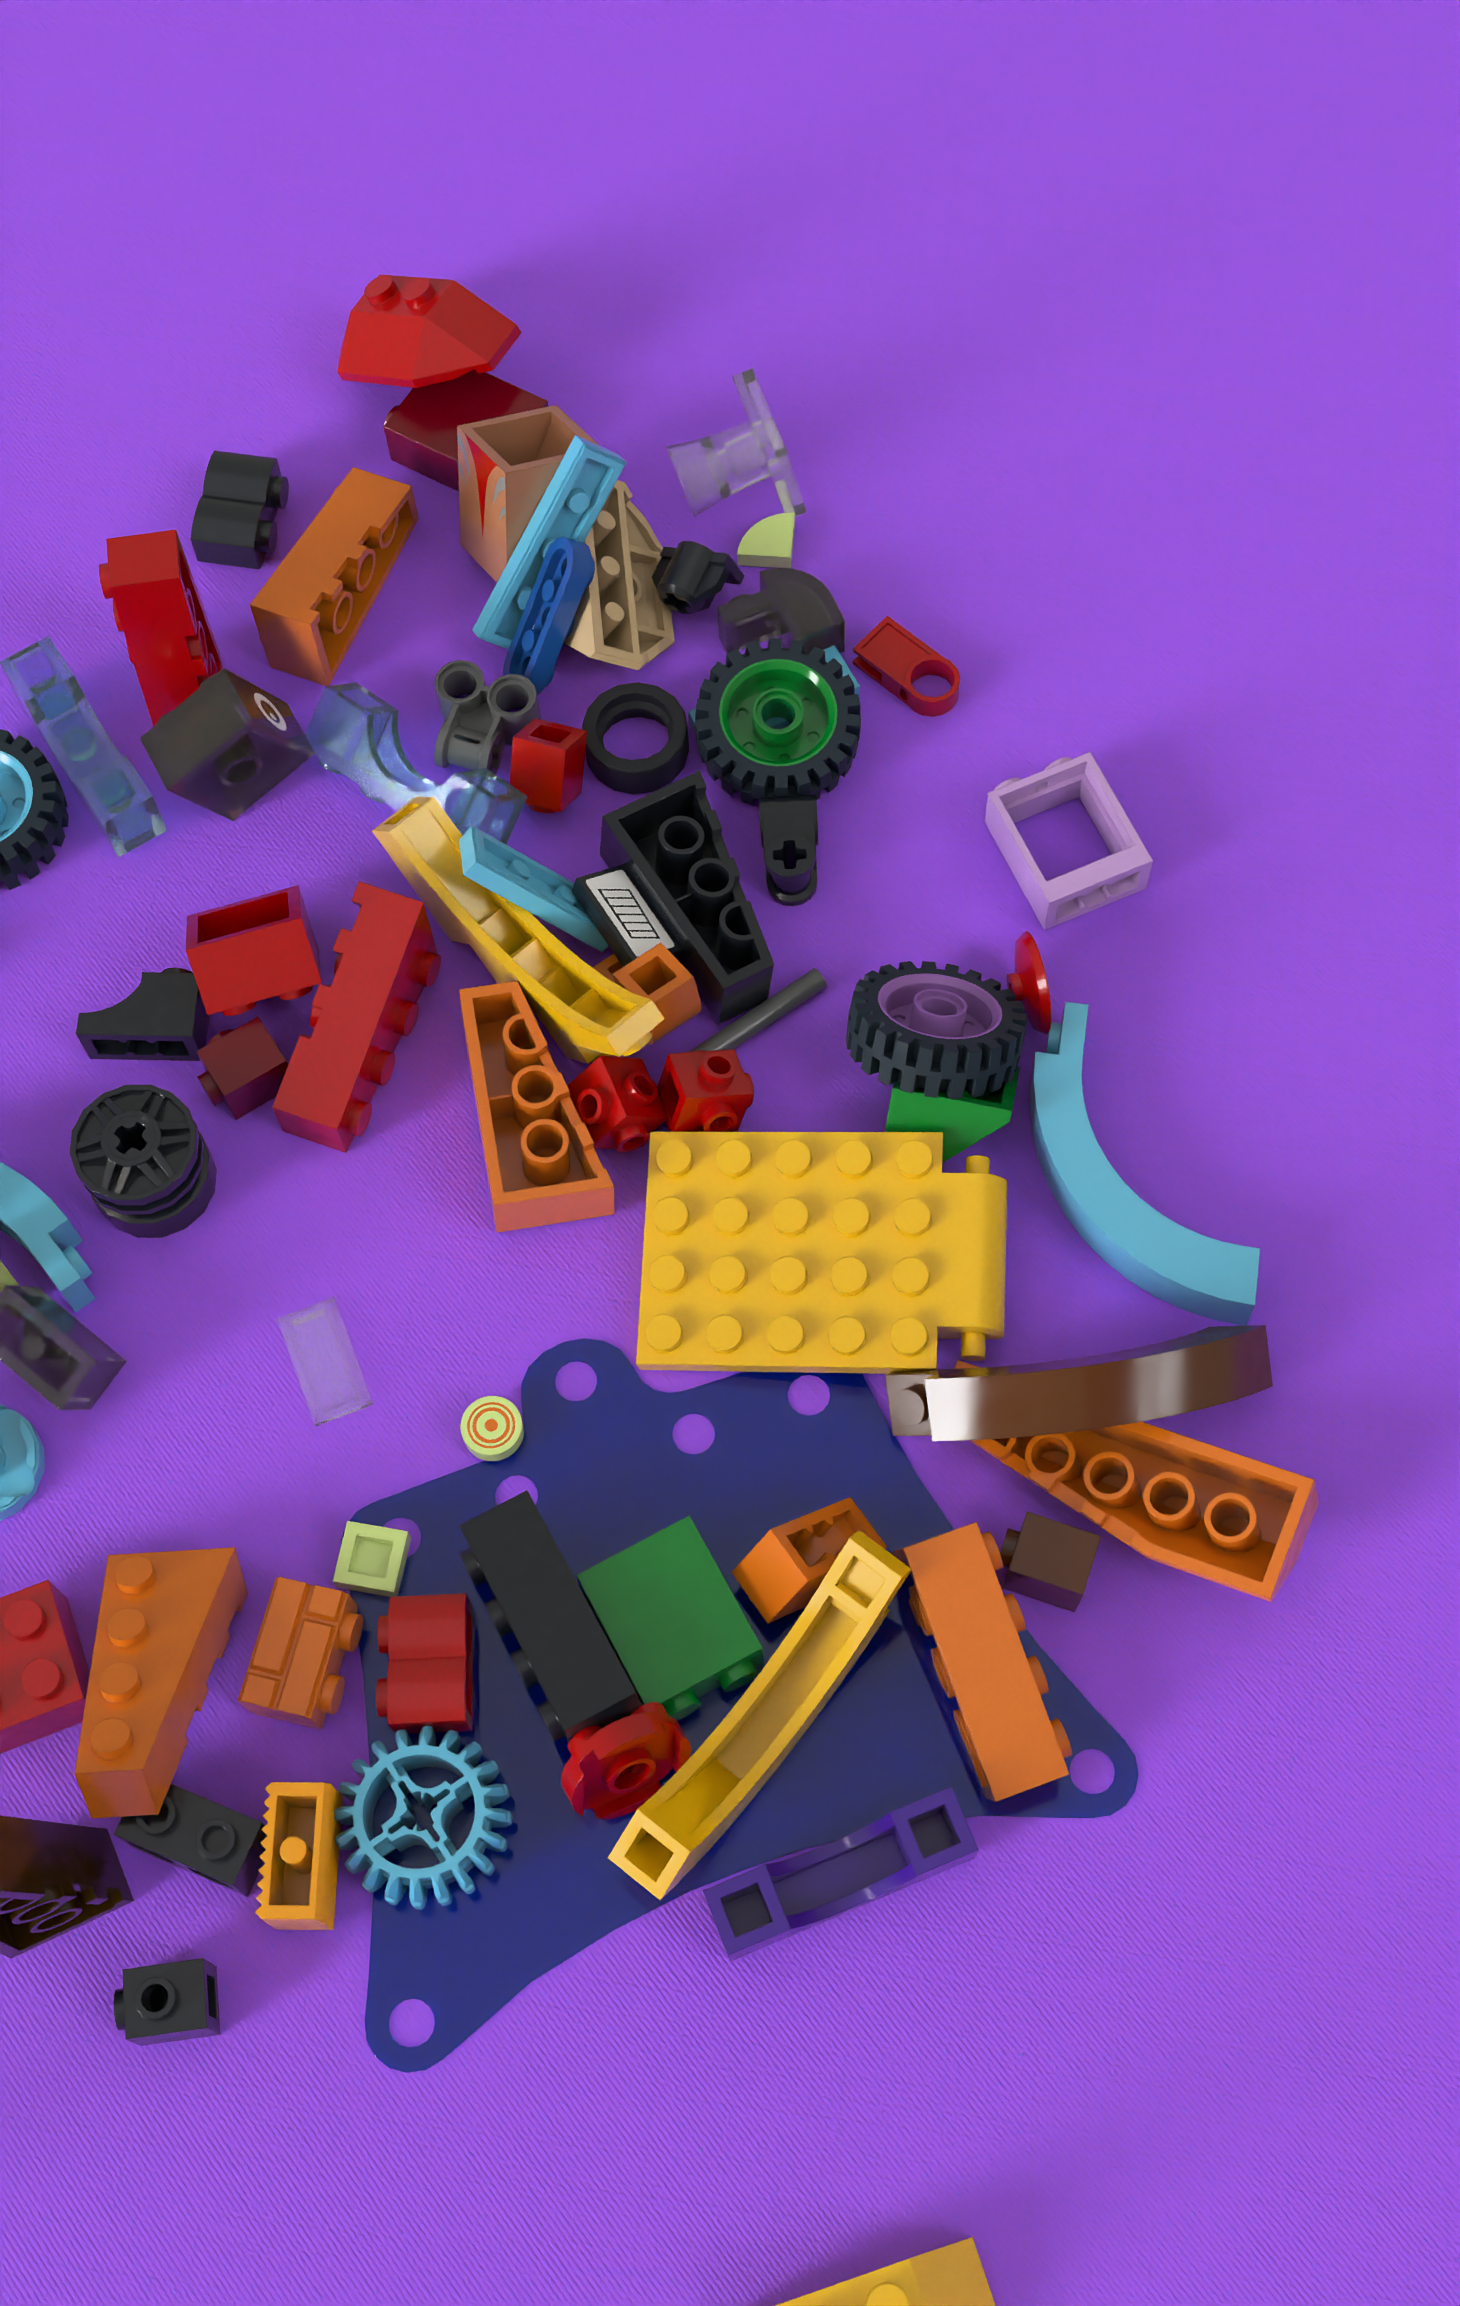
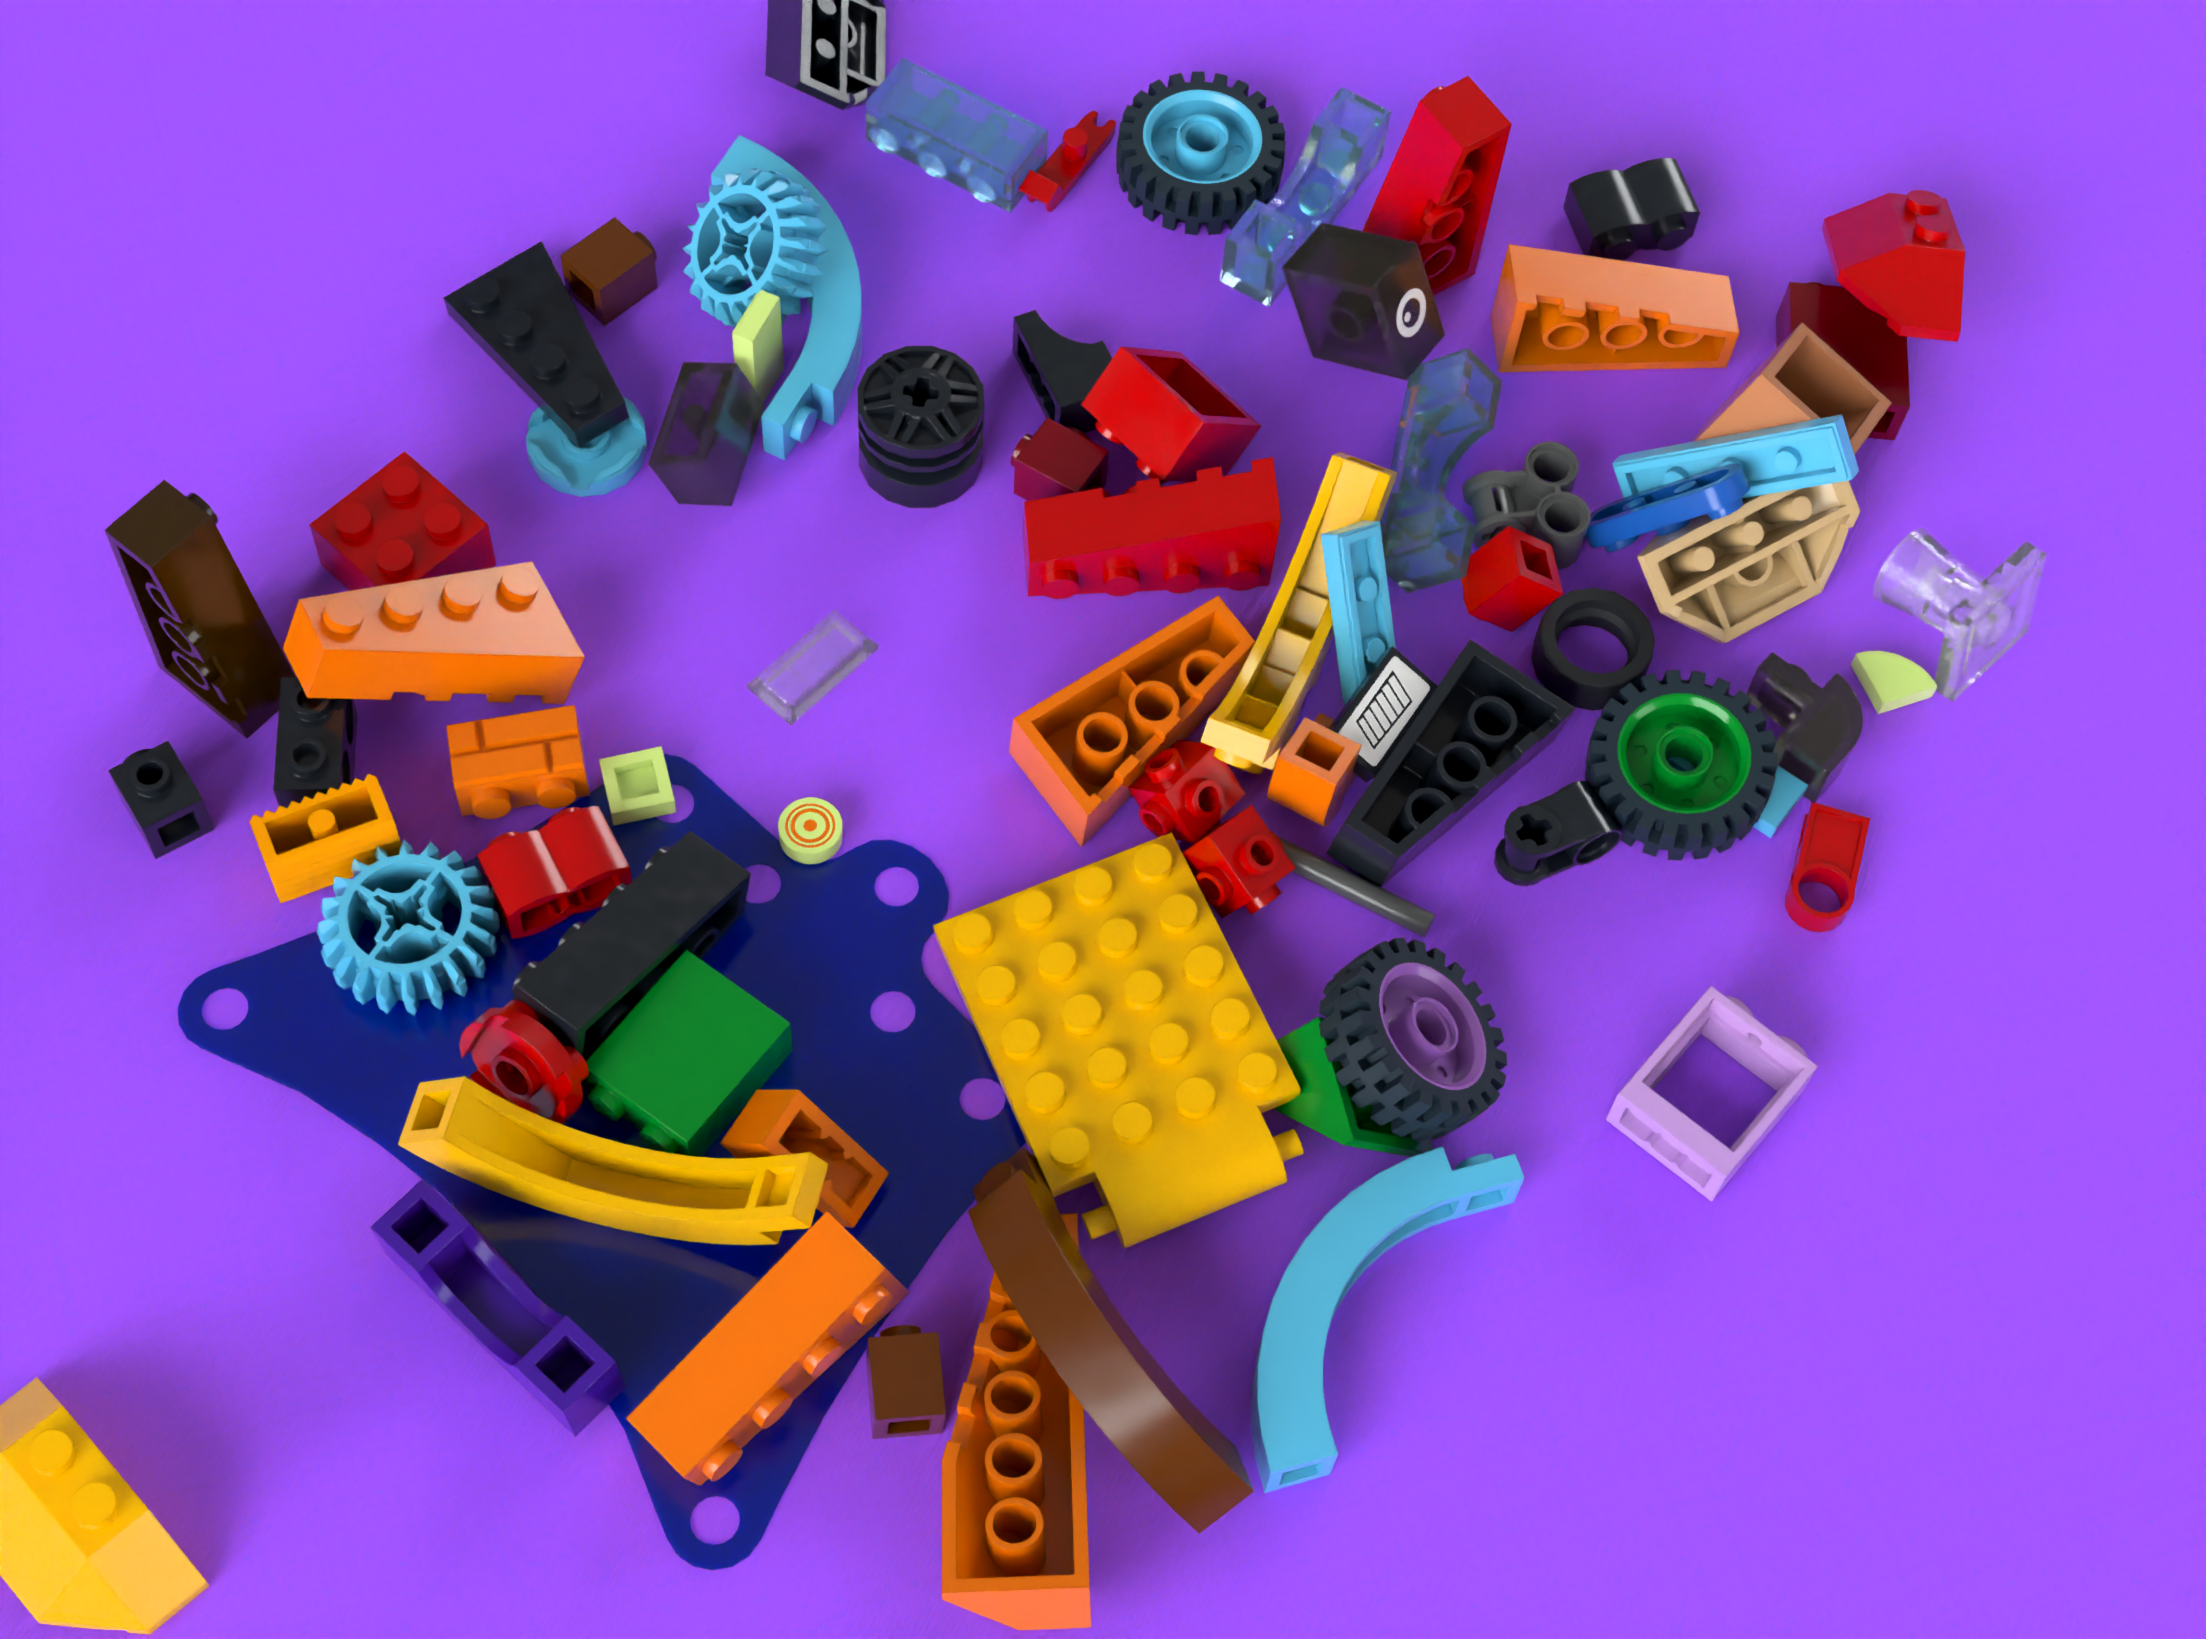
camera: 55 degrees right, 5 degrees down
(692, 576) = (1797, 622): black piece -> none
(1030, 983) = (1518, 1112): red piece -> none

